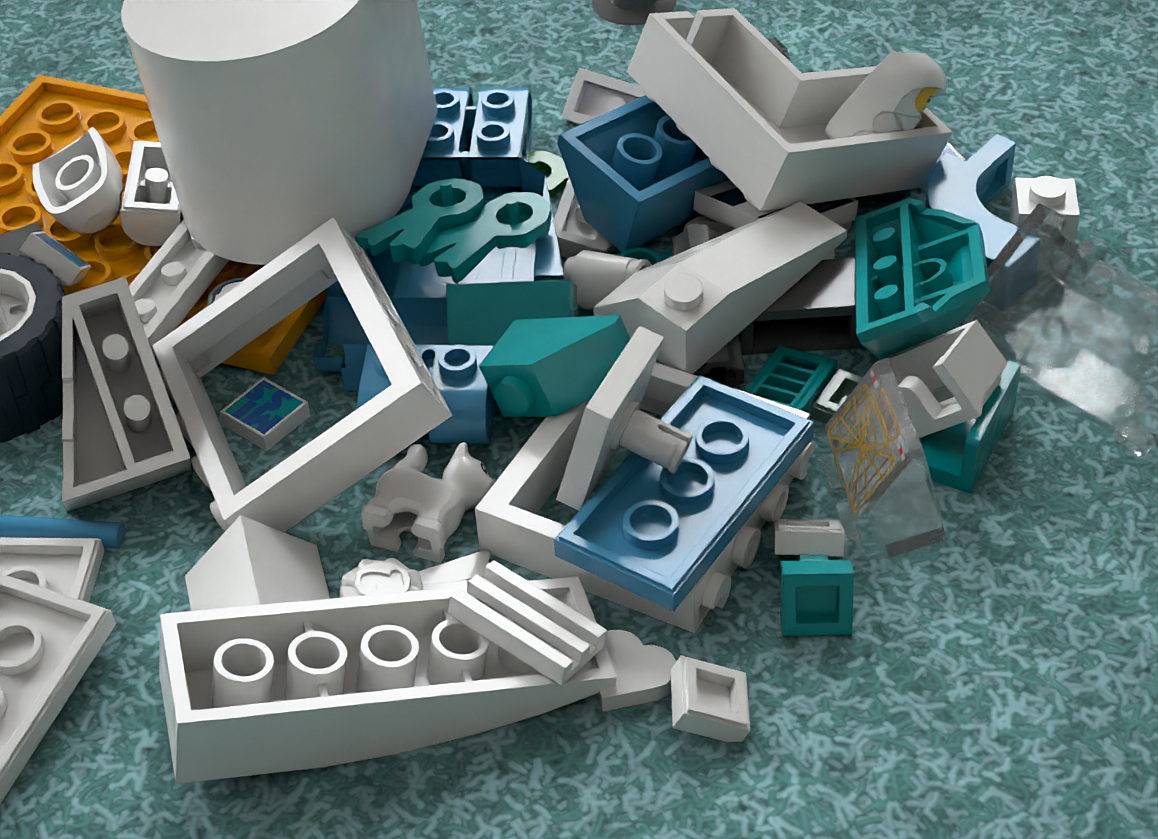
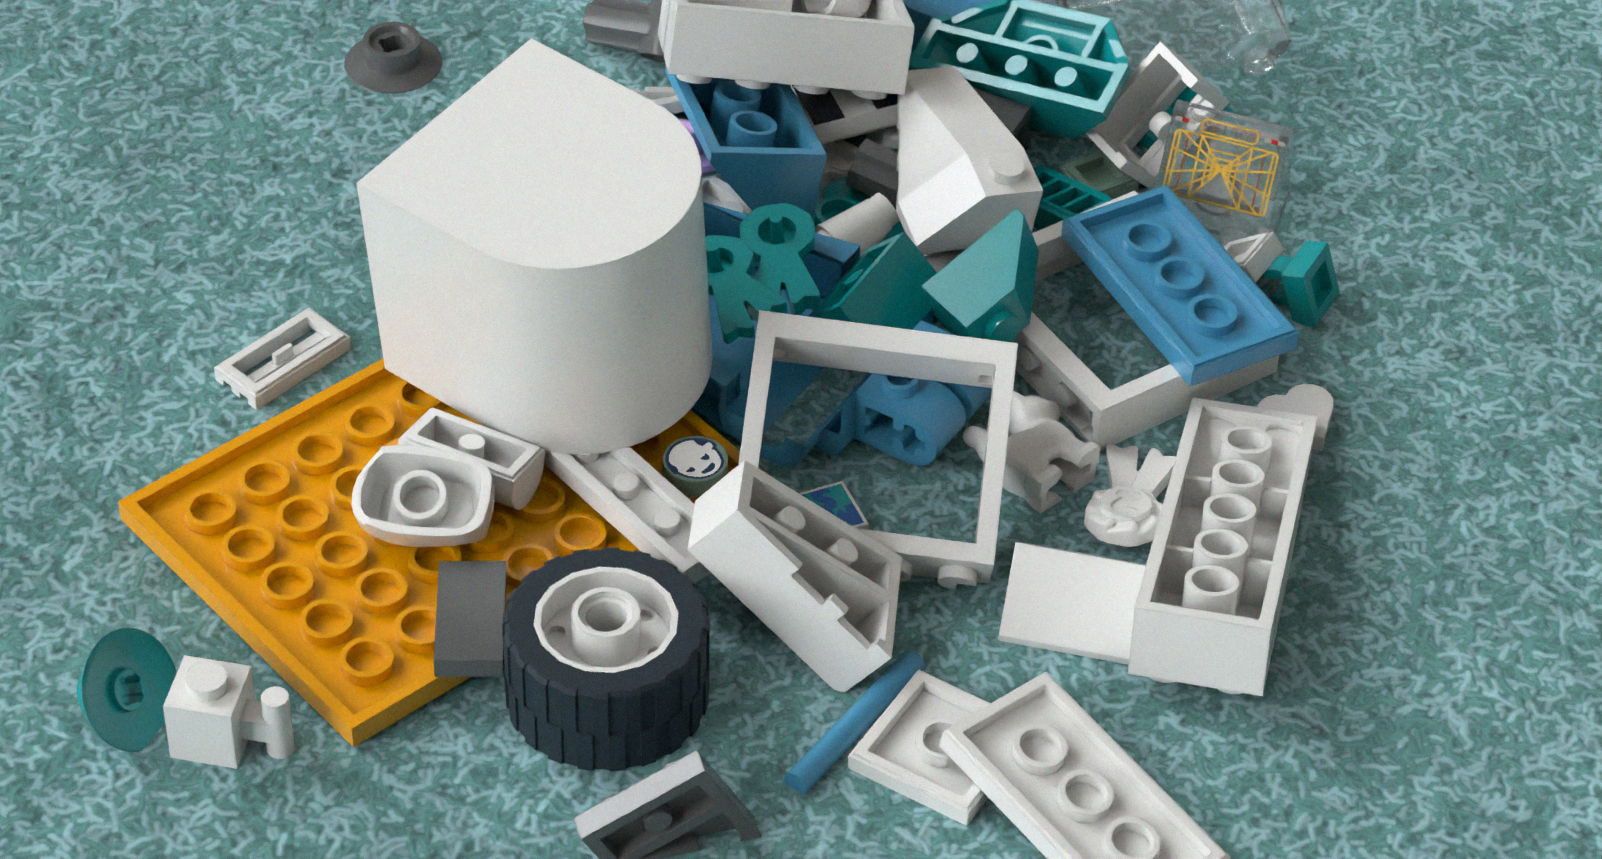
camera: 65 degrees left, 0 degrees up
(54, 255) = (533, 552): white tile -> none
(533, 615) = (1248, 430): white tile -> none
(615, 422) = (1117, 271): white tile -> none
(709, 700) = (1365, 382): white tile -> none

